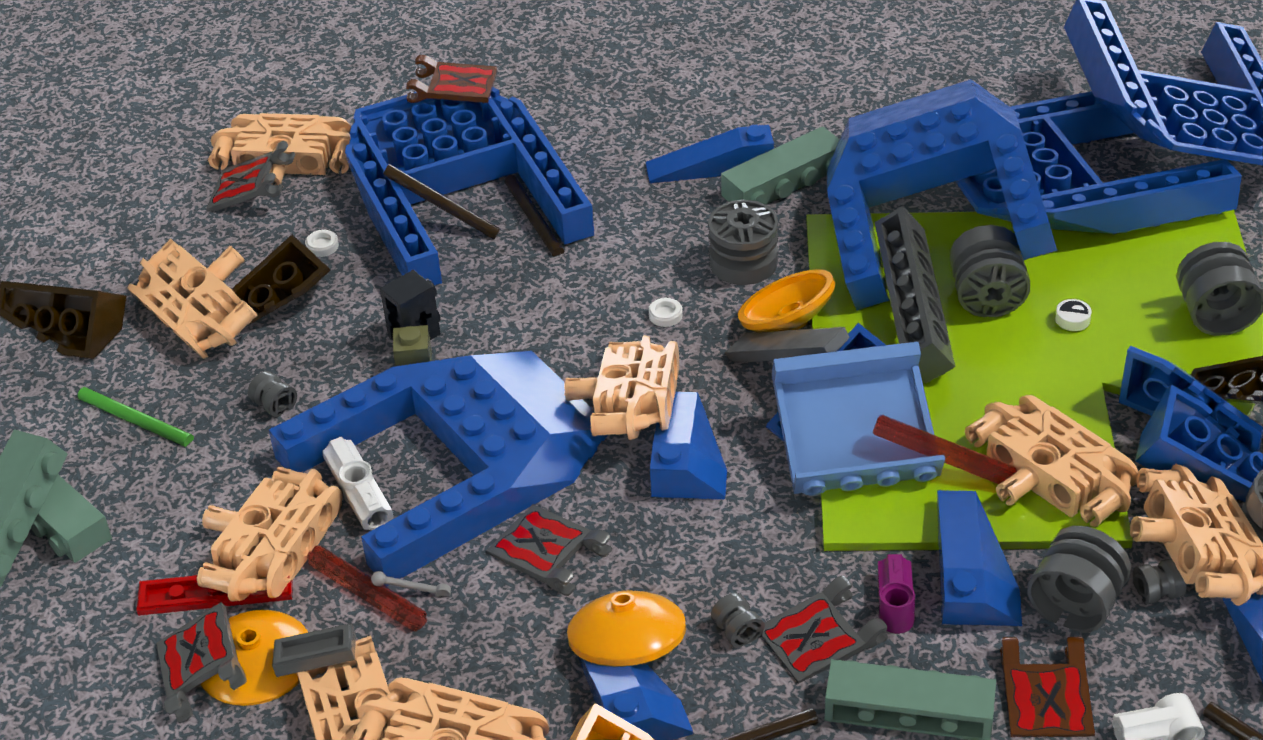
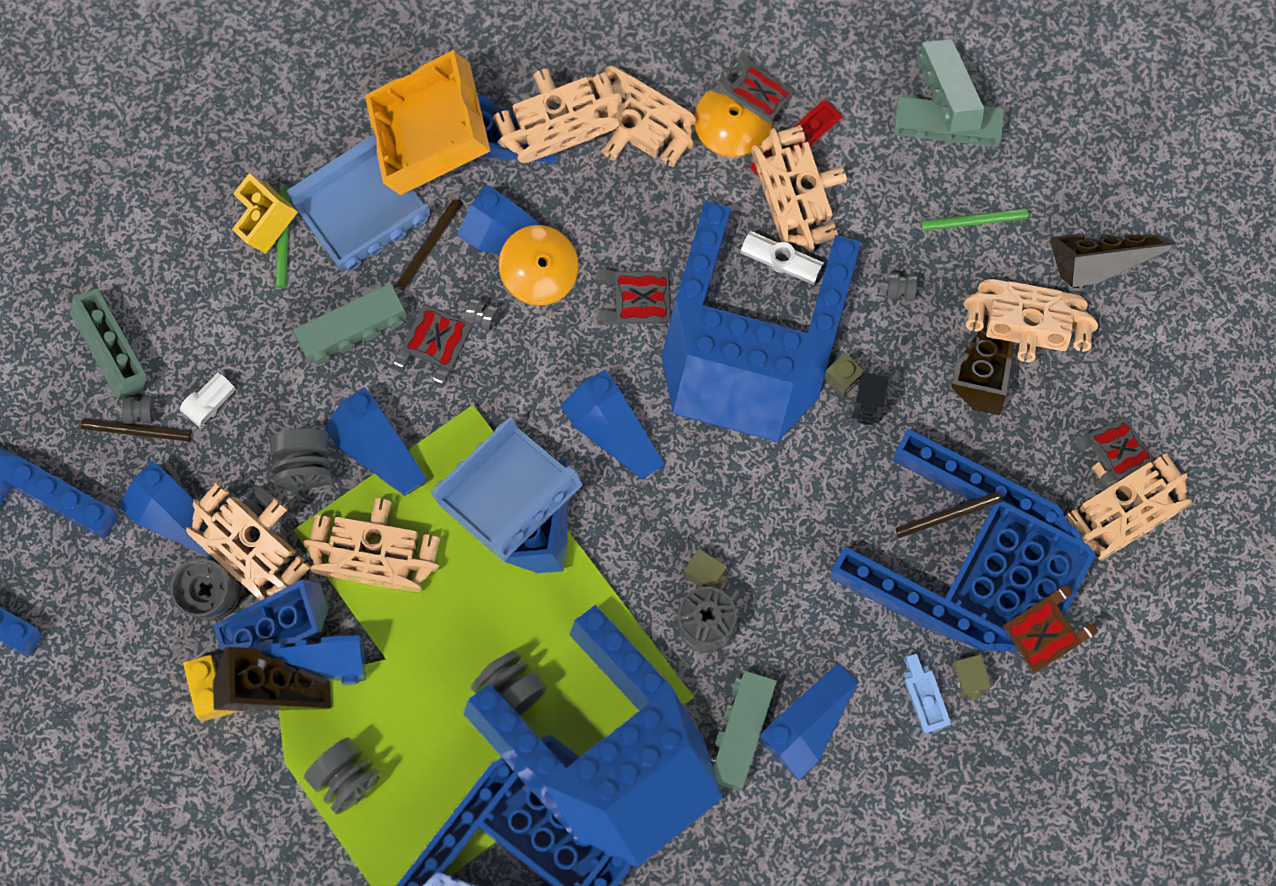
camera: 140 degrees right, 30 degrees up
(314, 650) = (687, 124): dark grey tile -> none
(322, 243) = (1009, 439): white tile -> none
(362, 586) = (697, 199): clear red axle -> none
(379, 578) = (670, 226): light grey hinge -> none
(534, 216) = (905, 574): dark brown bar -> none
(549, 111) = (971, 677): none -> olive brick
(598, 124) = (925, 696): none -> light blue hinge
(632, 387) = (659, 443): light nougat piece -> none
(665, 312) = (718, 535): white tile -> none
(708, 284) = (705, 571): none -> olive brick
(784, 344) = (598, 529): dark grey tile -> none
(787, 302) = (646, 576): light orange dish -> none
(896, 593) = (406, 395): magenta piece -> none
(914, 291) = (549, 637): dark grey brick -> none
(933, 445) = (439, 504): clear red axle -> none
(1047, 697) = (280, 385): flag -> none
(1073, 315) = (438, 706): white tile -> none

